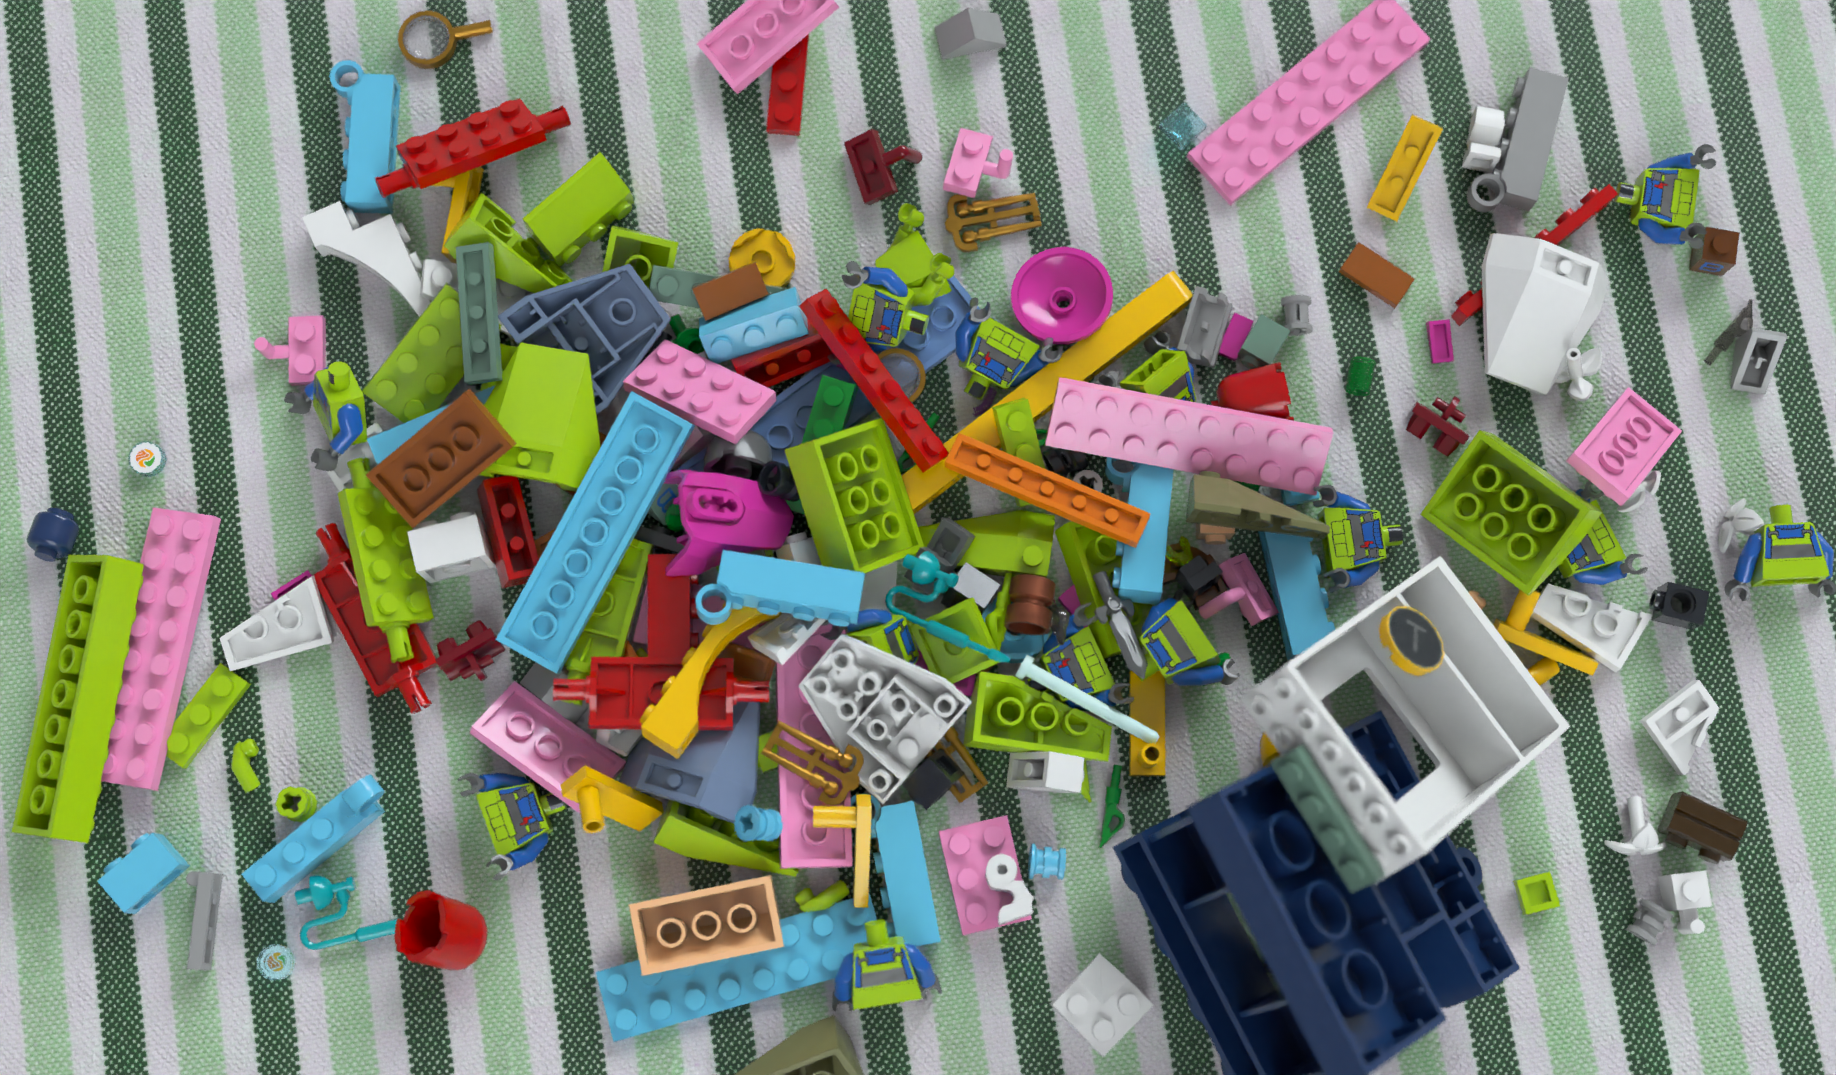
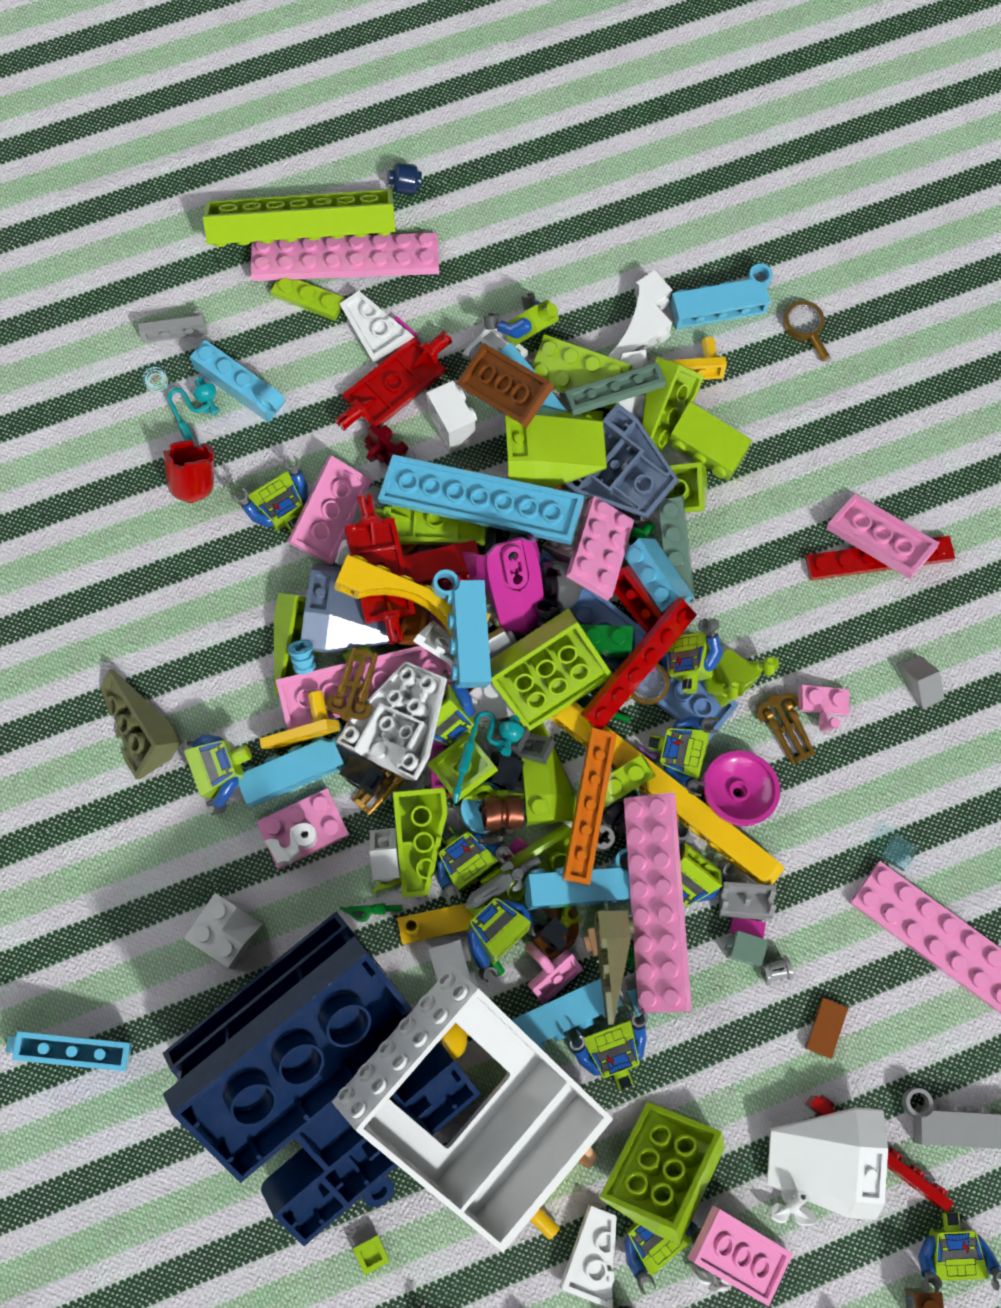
camera: 75 degrees right, 5 degrees down
(142, 872) = (197, 285): medium azure brick -> none
(147, 458) = (469, 222): tile -> none
(241, 764) = (278, 326): lime arm -> none
(305, 348) = (567, 297): bright pink plate -> none
(306, 806) = (260, 364): lime bush -> none
(383, 562) = (411, 380): lime plate -> none
(469, 145) = (736, 361): red plate -> none
(508, 529) = (474, 448): red brick -> none
(608, 797) = (301, 545): yellow piece -> none
(706, 925) = (228, 642): light nougat slope -> none
(730, 291) = (678, 552): dark orange tile -> none
(769, 251) = (711, 574): yellow tile -> none
(810, 955) = (204, 669): medium azure plate -> none
(824, 899) = (262, 719): lime arm -> none
(872, 165) = (802, 633): dark red plate -> none
(1046, 862) = (320, 869): medium azure bush -> none
(1085, 700) = (455, 822): light aqua bar -> none
(1216, 716) = (452, 955): none -> white slope
(1256, 391) = (704, 950): red cylinder -> none
(1327, 818) = (371, 1051): sand green plate -> none
(1362, 371) = (749, 1033): green piece -> none
(1404, 167) = (917, 1030): yellow piece -> none
(1411, 640) = (531, 1098): tile -> none
(1440, 341) = (788, 1090): dark pink piece -> none
(1450, 436) = (715, 1112): dark red hips -> none
(1484, 135) = (960, 1092): white leg -> none
(1514, 631) = (571, 1196): yellow piece -> none

